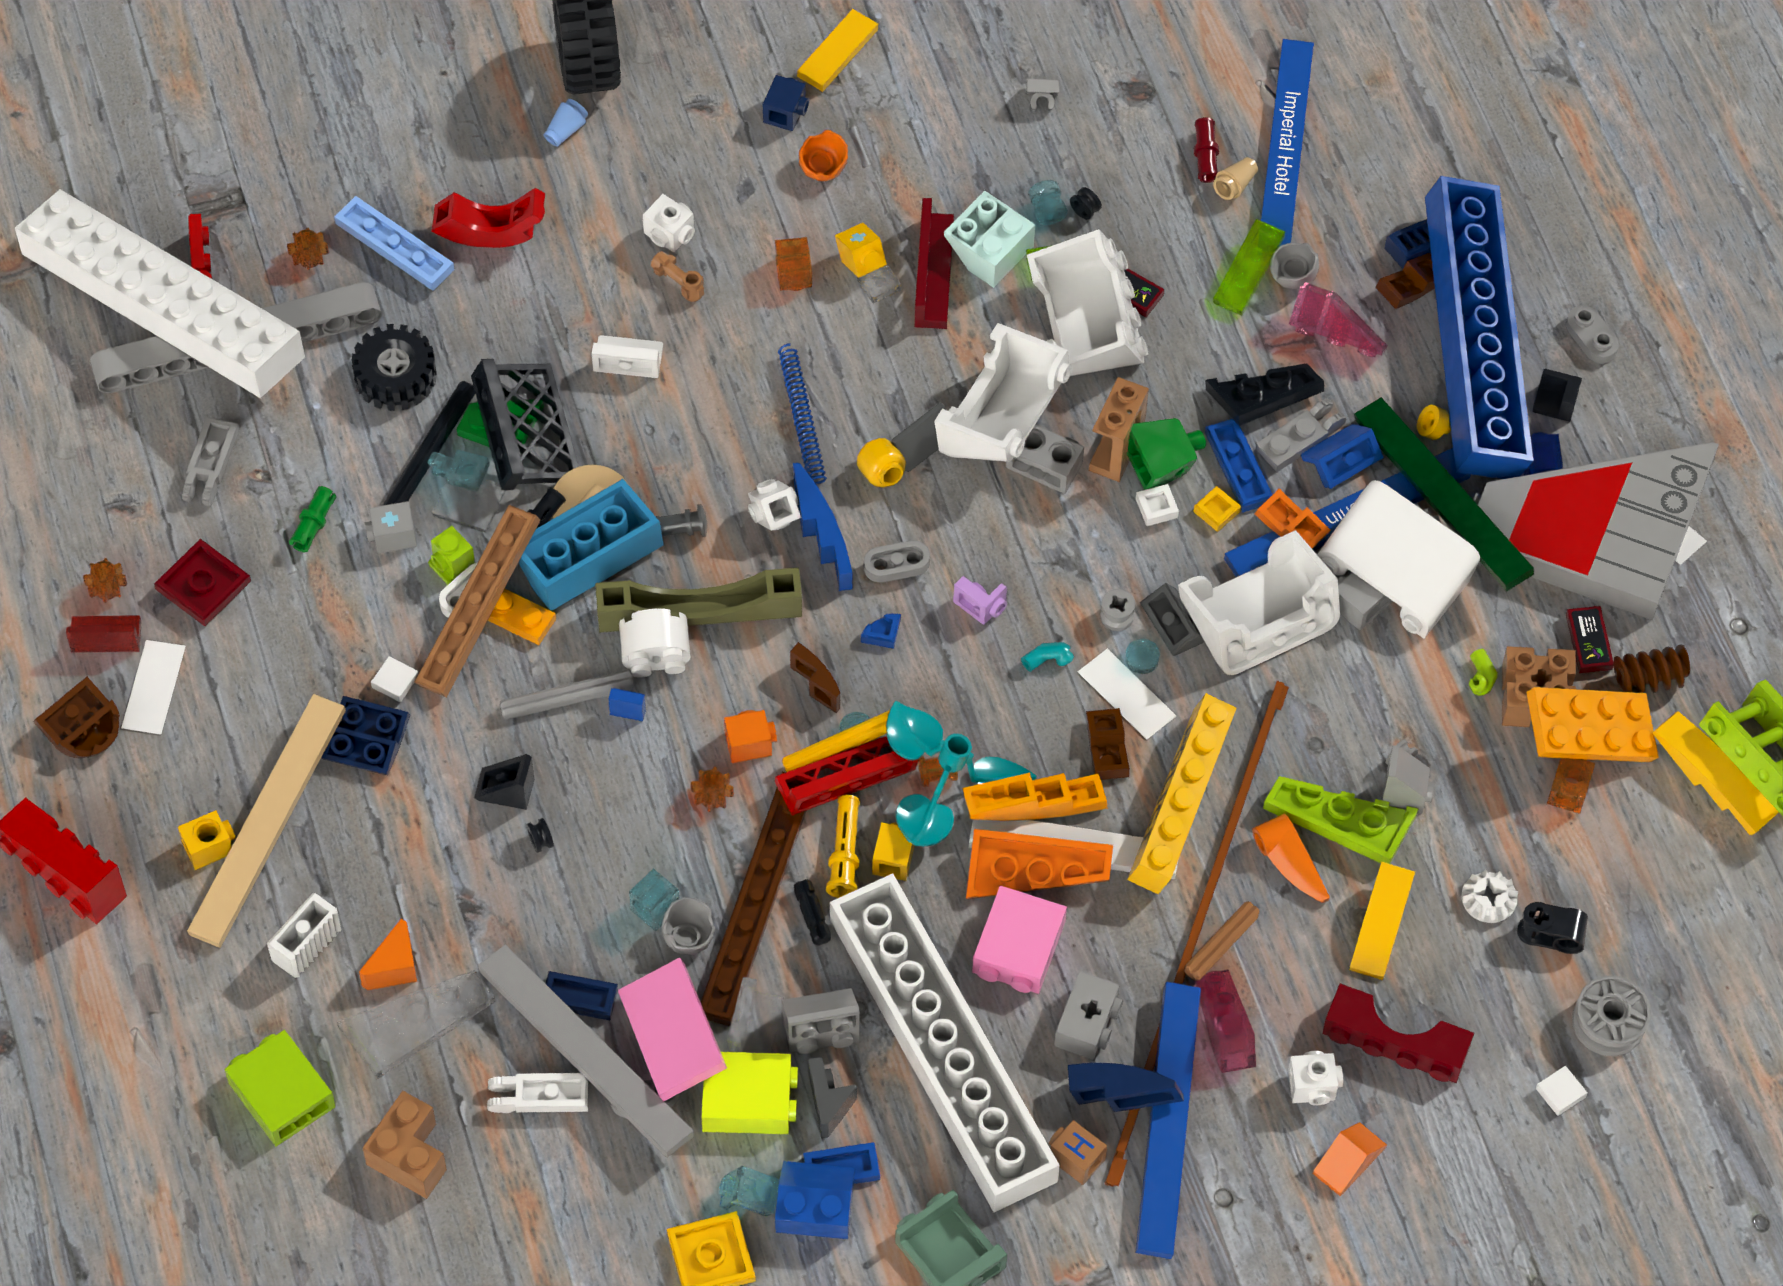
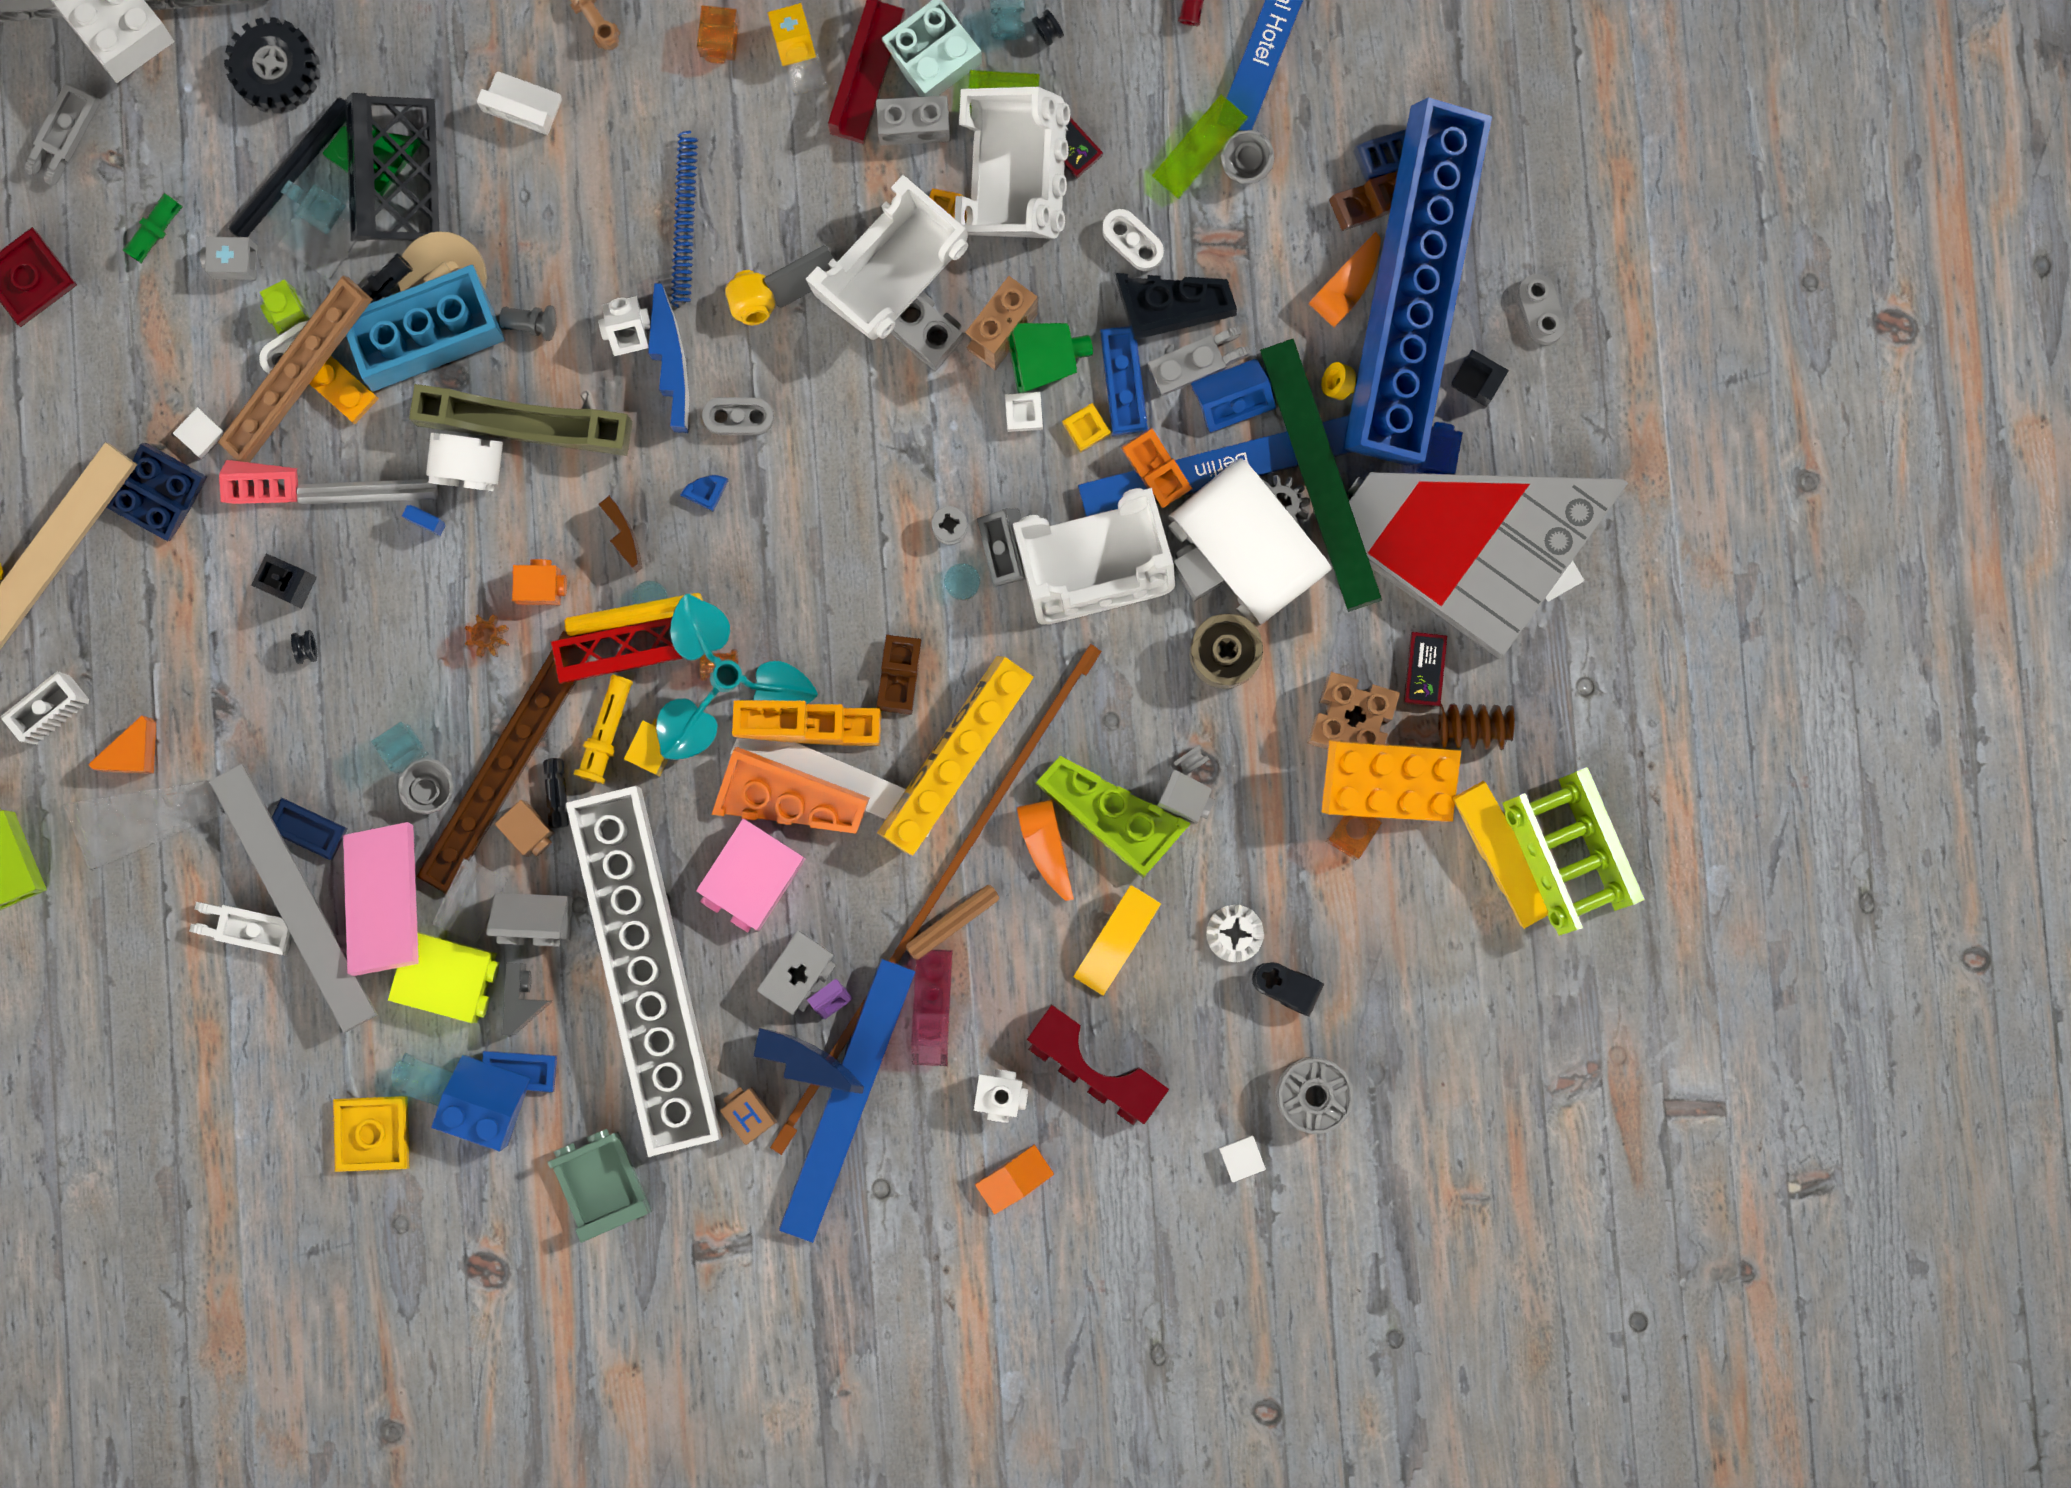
camera: 15 degrees right, 25 degrees up
(400, 1149) = (91, 957): medium nougat brick -> none
(453, 719) = (244, 493): none -> coral slope
(792, 946) = (525, 829): none -> medium nougat brick
(977, 602) = (806, 480): lavender bracket -> none
(988, 295) = (913, 120): none -> light grey brick
(1047, 651) = (866, 555): teal arm -> none
(1126, 1031) = (830, 999): none -> medium lavender tile
(1128, 693) = (936, 619): white sticker -> none
(1213, 351) = (1135, 239): none -> white plate
(1235, 178) = (1216, 32): tan cone -> none
(1330, 316) = (1268, 232): clear pink slope -> none
(1404, 655) = (1226, 630): none -> dark tan brick
(1414, 347) = (1348, 284): none -> orange piece
(1485, 675) = (1305, 686): lime arm -> none

